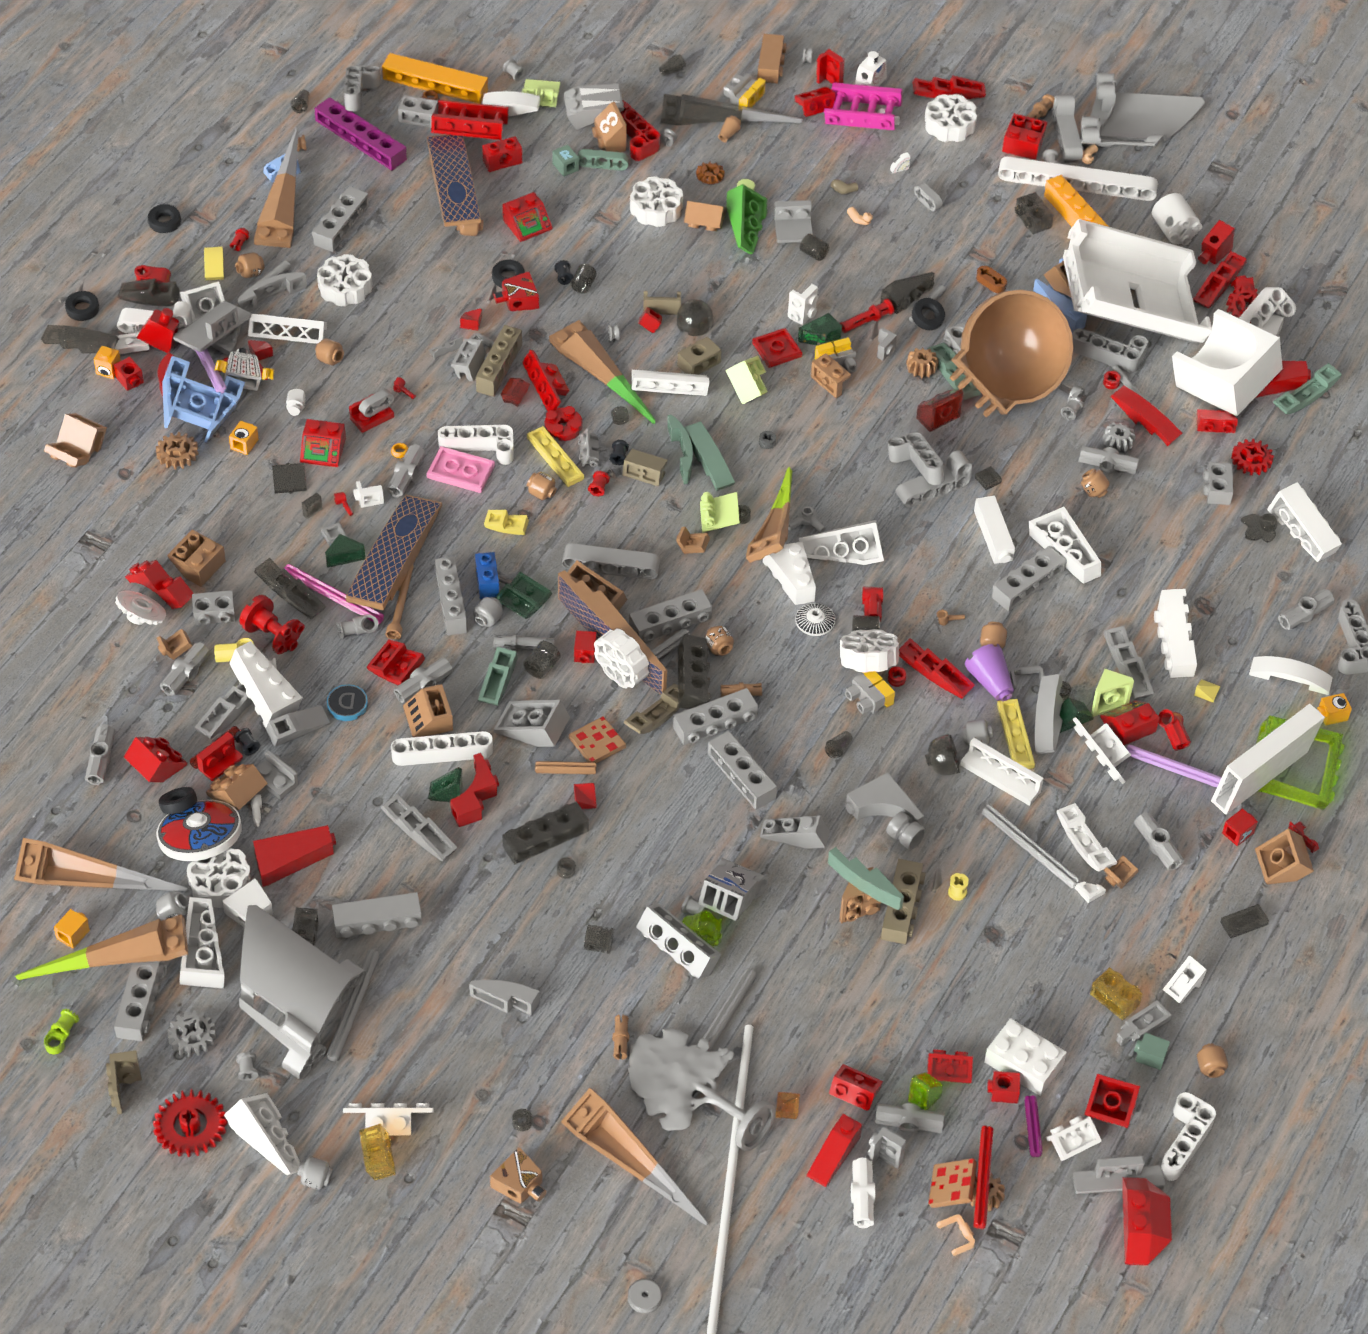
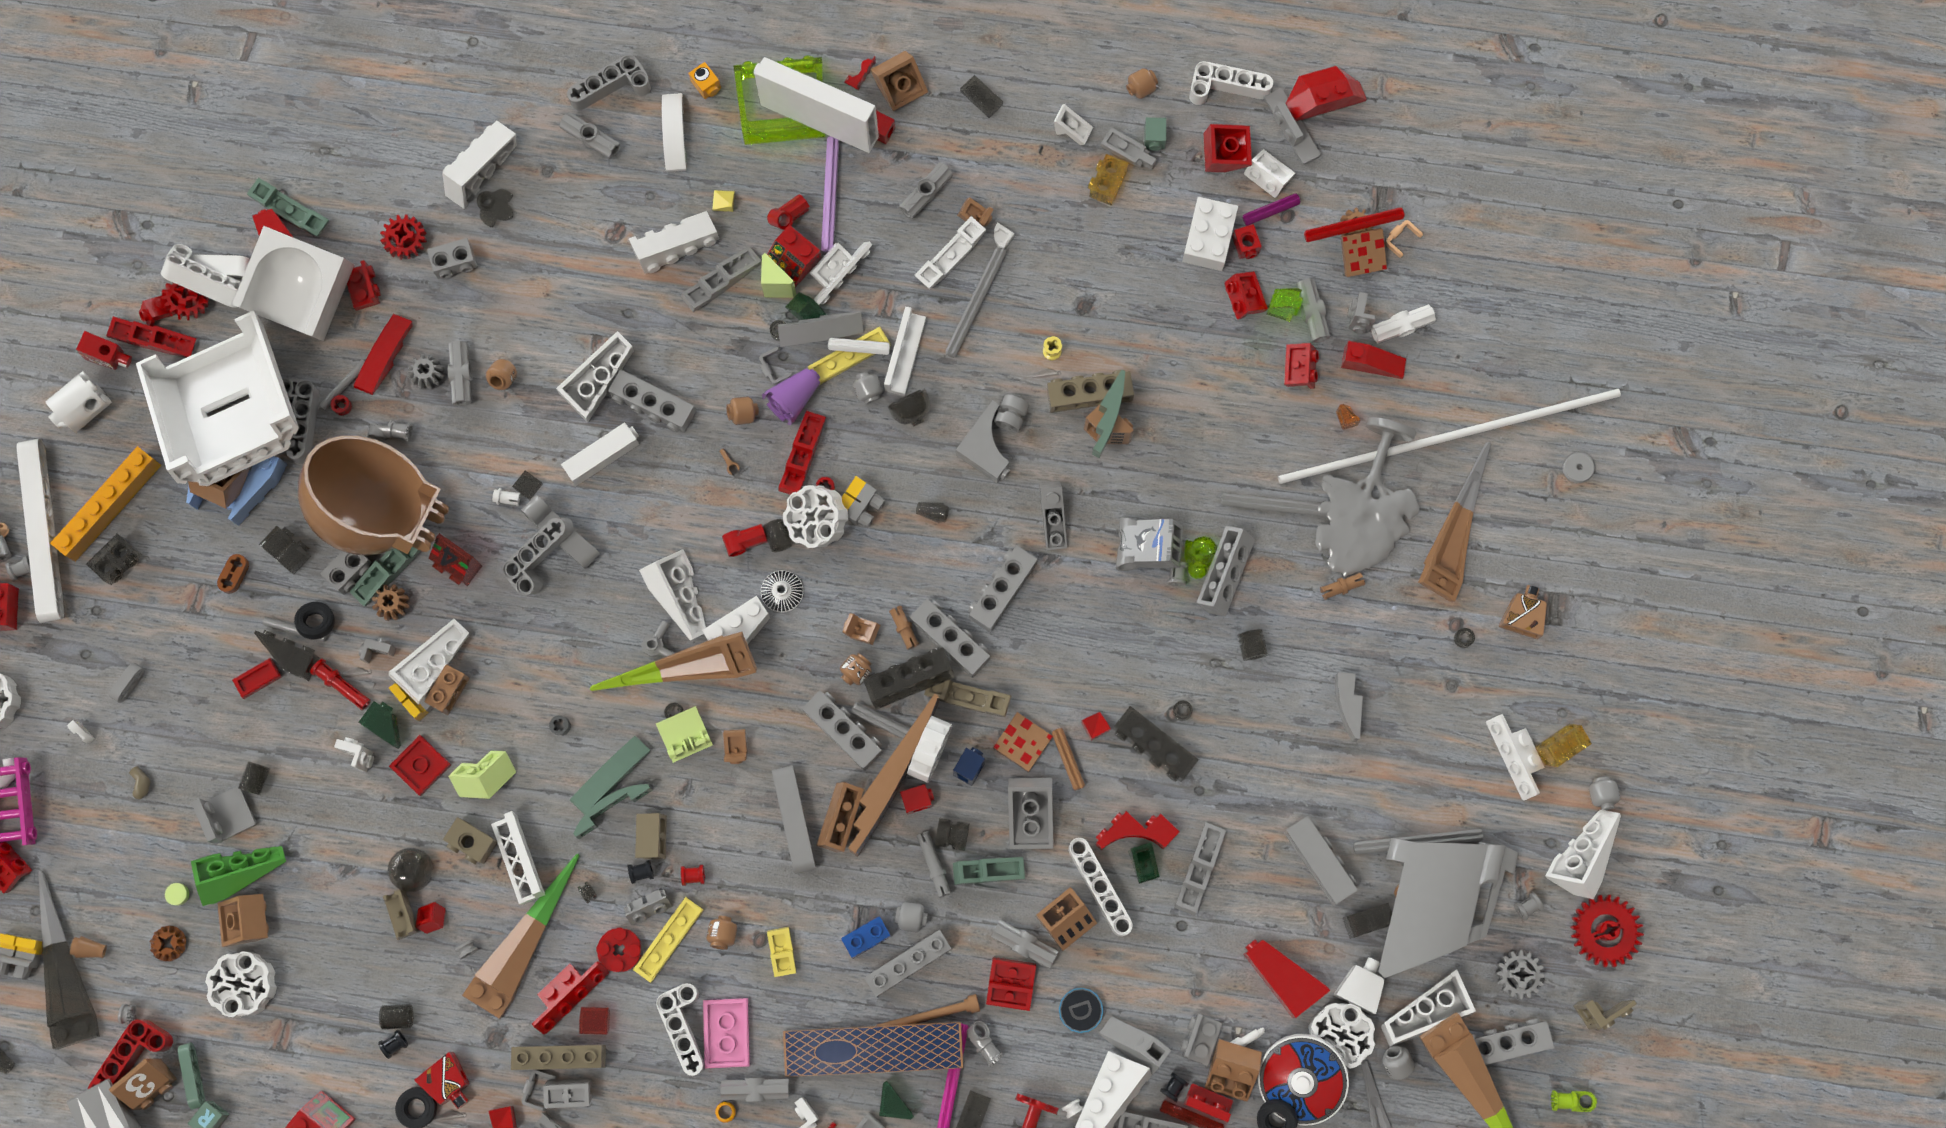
camera: 110 degrees left, 25 degrees up
(523, 595) = (872, 891): clear green slope -> none
(593, 685) = (969, 765): none -> dark blue brick
(755, 656) = (860, 629): none -> medium nougat bracket
(855, 358) = (423, 666): none -> white wing
(864, 219) = (186, 748): light nougat arm -> none
(895, 268) = (257, 678): none -> red tile
(984, 456) = (506, 497): none -> white pin
(1020, 736) = (859, 346): none -> white axle

